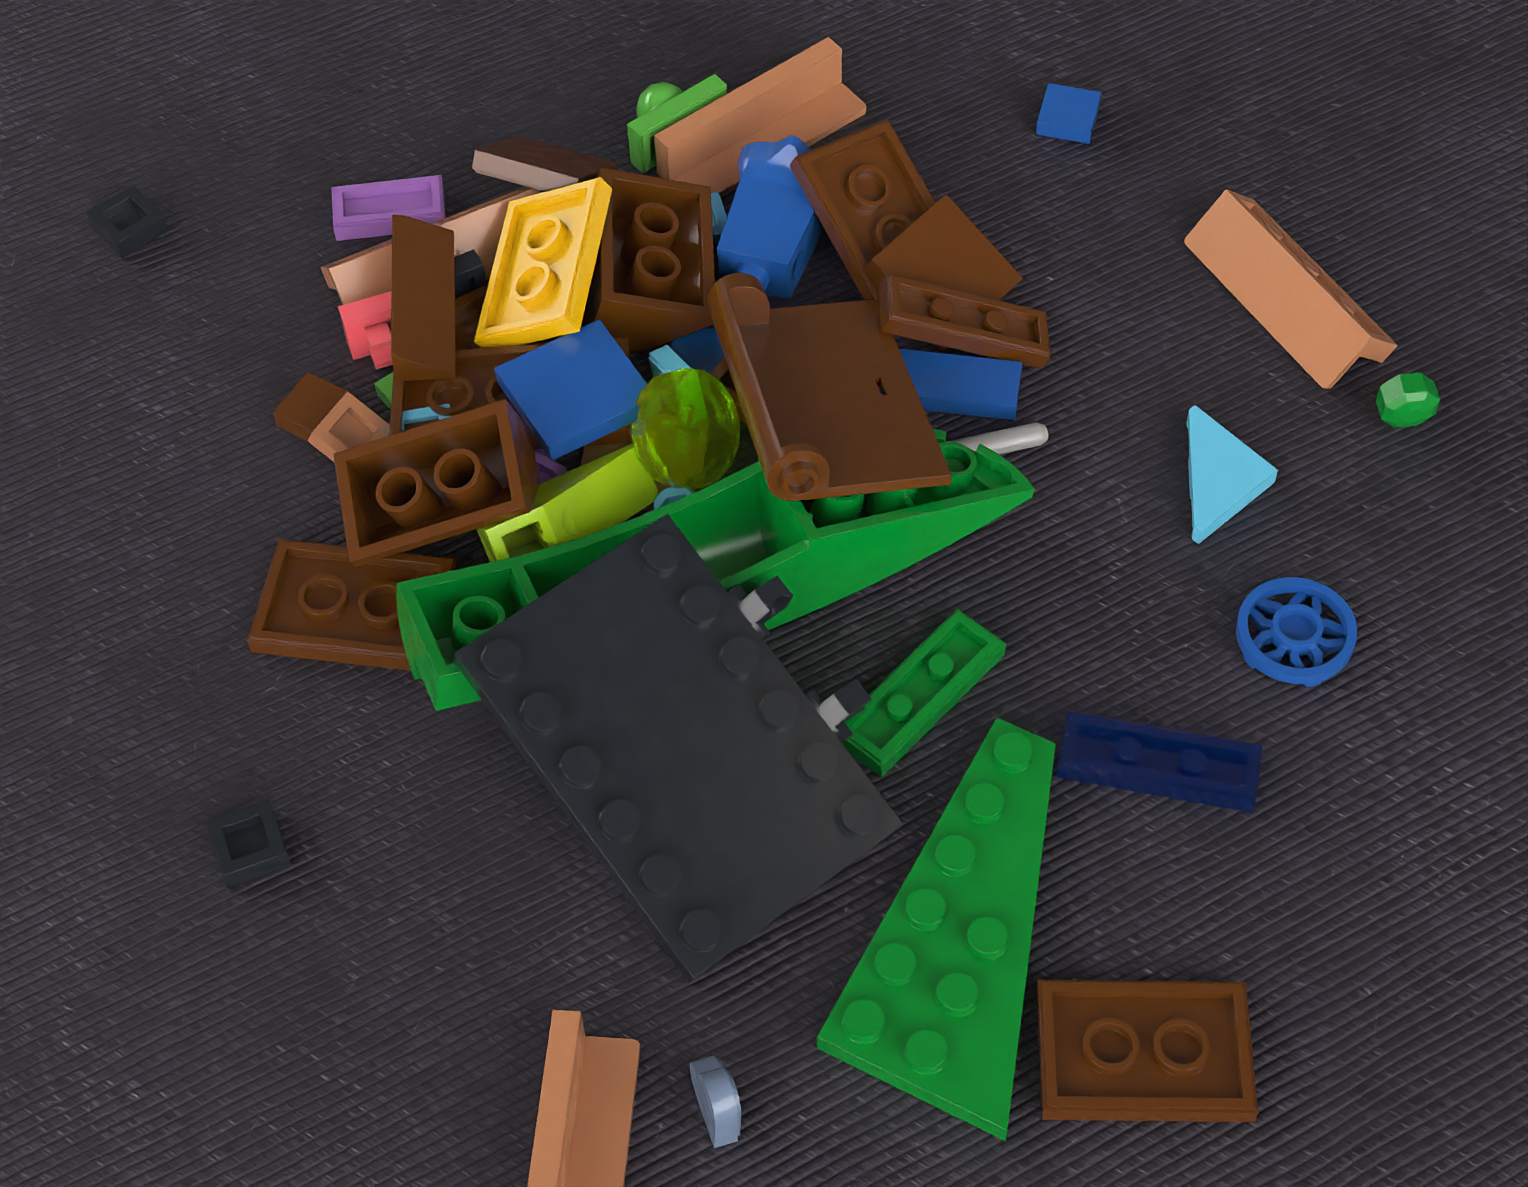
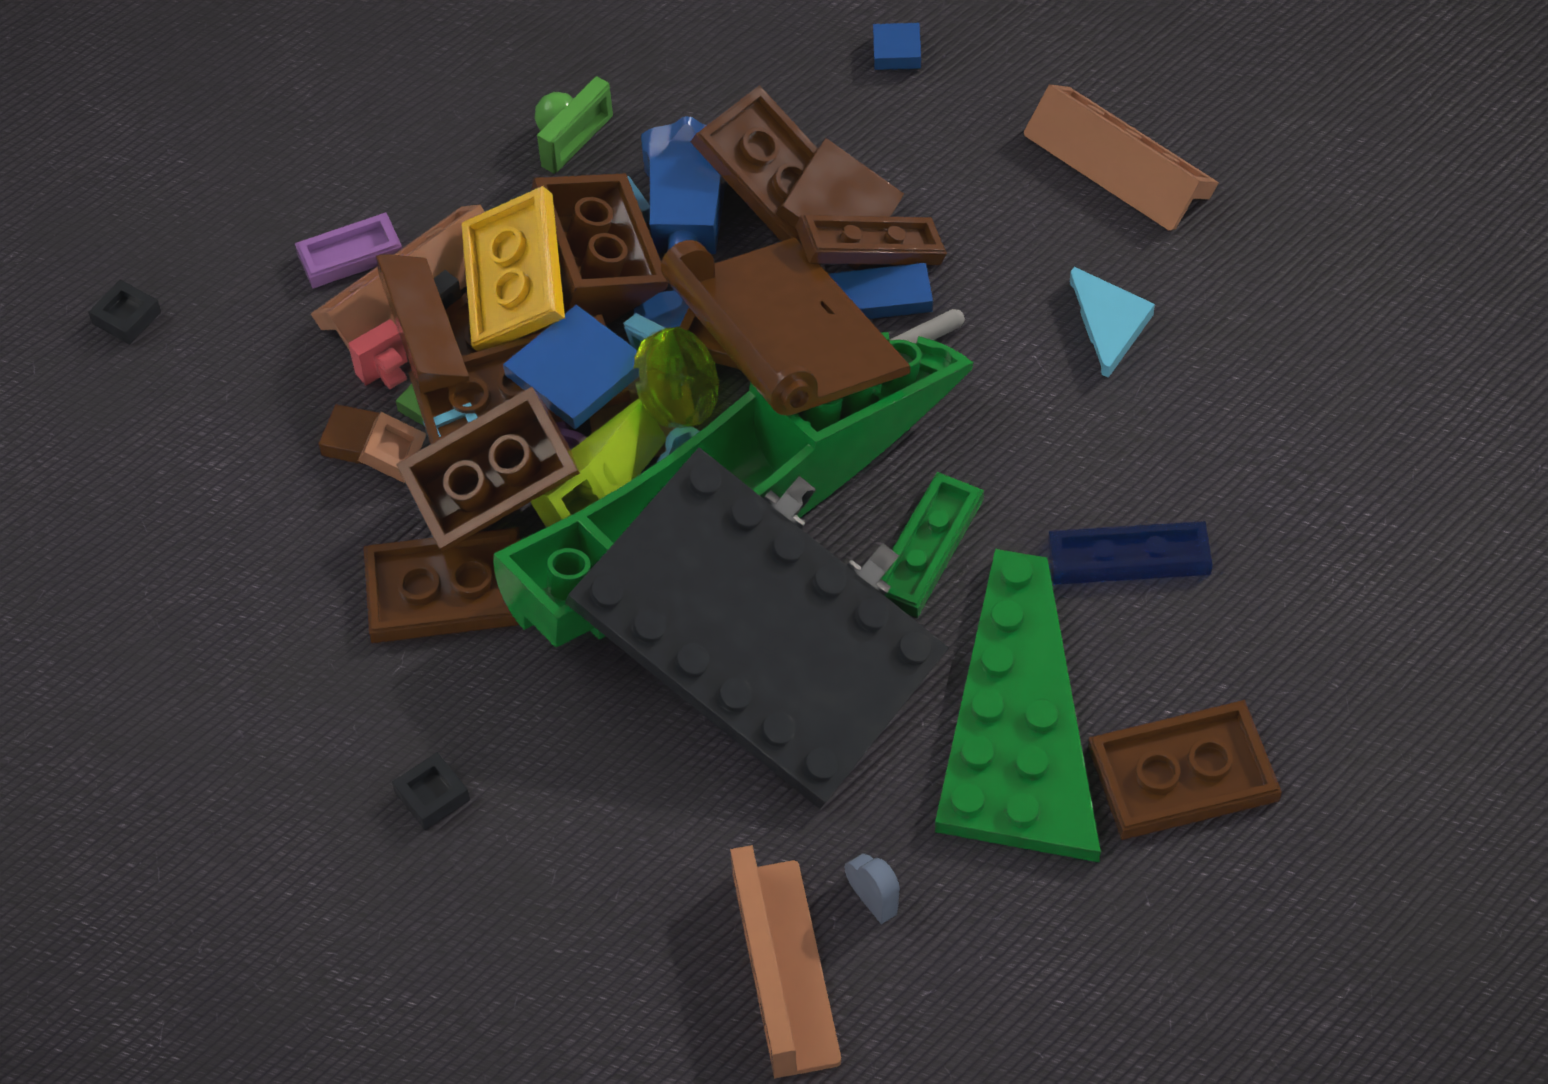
camera: 15 degrees left, 0 degrees up
(537, 164) = (475, 185): reddish brown tile -> none
(793, 99) = (655, 94): nougat panel -> none
(1296, 631) = (1204, 427): blue wheel -> none
(1407, 400) = (1239, 225): green tile -> none

